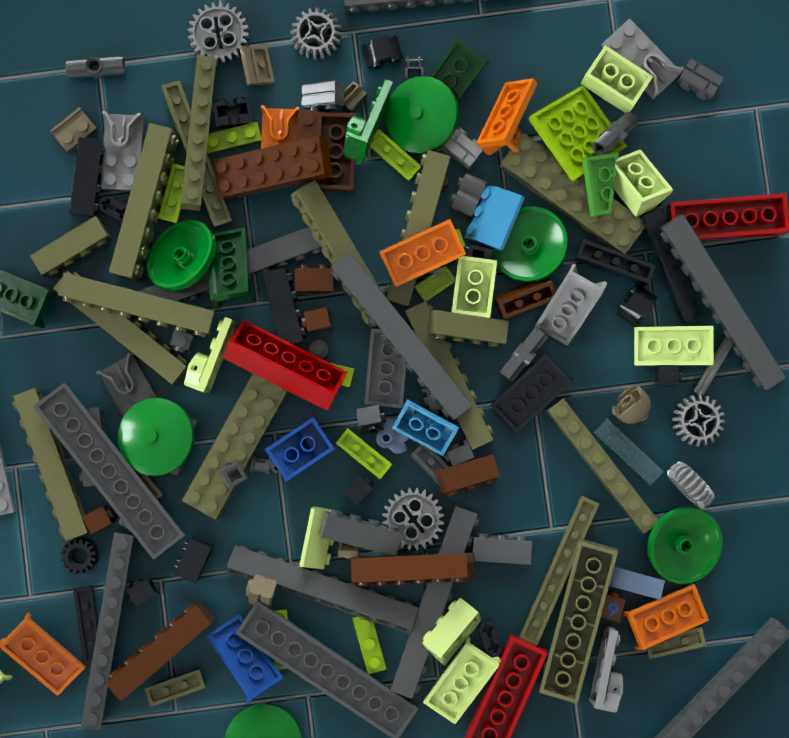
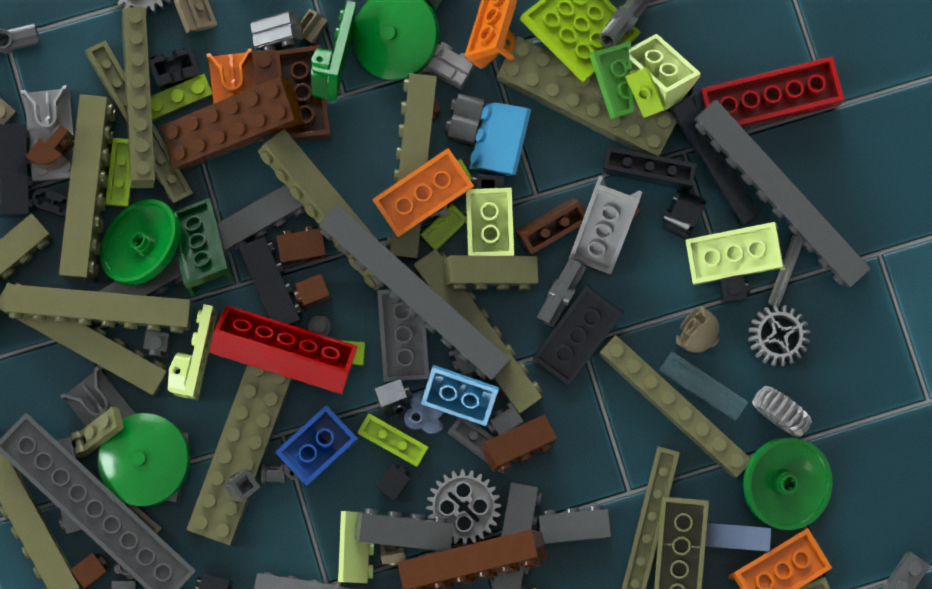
camera: 20 degrees left, 5 degrees down
(118, 169) = (50, 154): none -> reddish brown brick
(121, 407) = (97, 432): none -> olive plate
(394, 156) = (372, 87): lime plate -> none
(534, 246) = (551, 165): green dish -> none
(613, 607) = (715, 570): reddish brown brick -> none
(624, 198) = (645, 92): none -> lime plate

